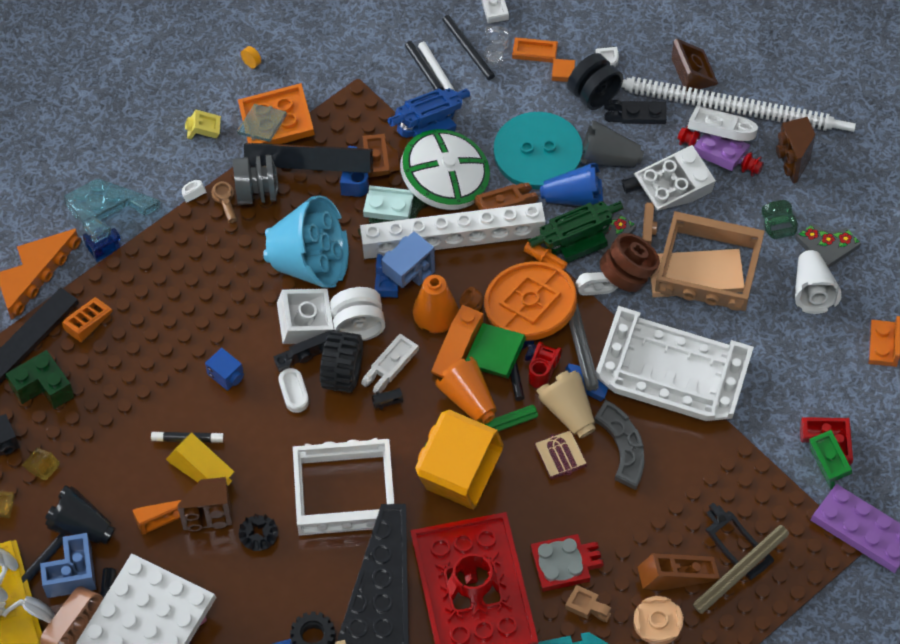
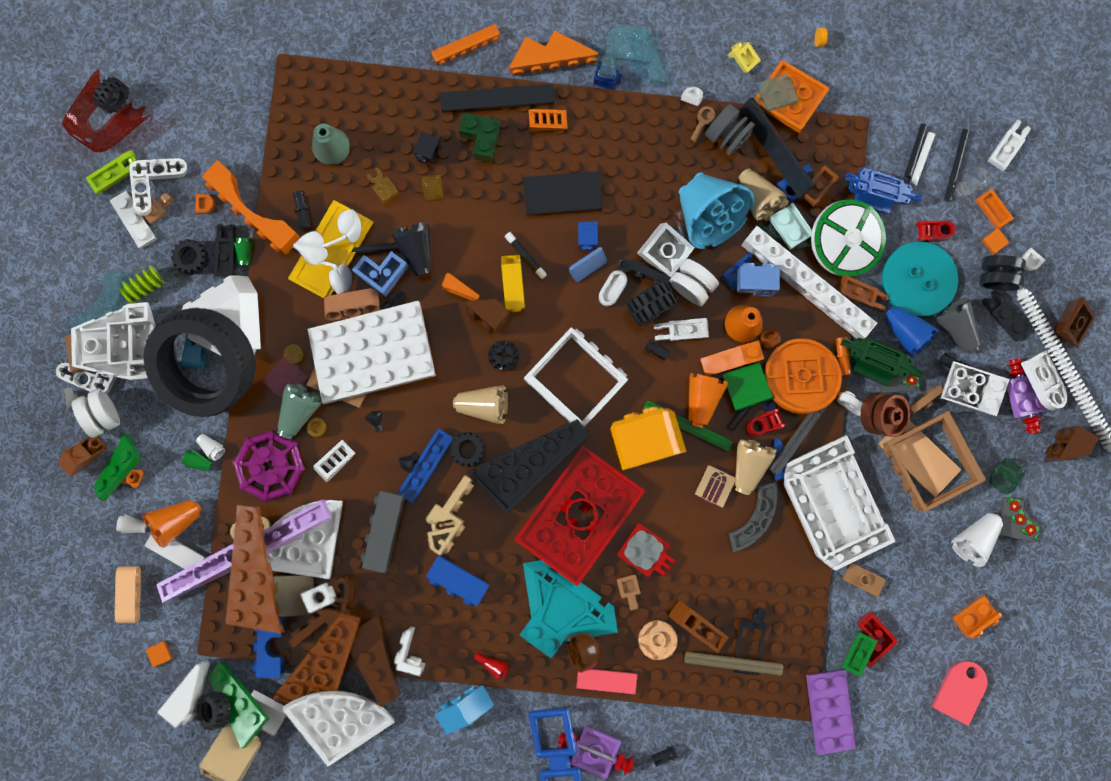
camera: 40 degrees right, 25 degrees up
(164, 360) = (562, 193): none -> black tile
(250, 391) = (588, 264): none -> medium blue slope
(284, 583) = (483, 403): none -> tan cone
(347, 198) = (766, 195): none -> tan cone
(506, 108) = (931, 230): none -> red piece
(766, 404) = (863, 579): none -> medium nougat plate

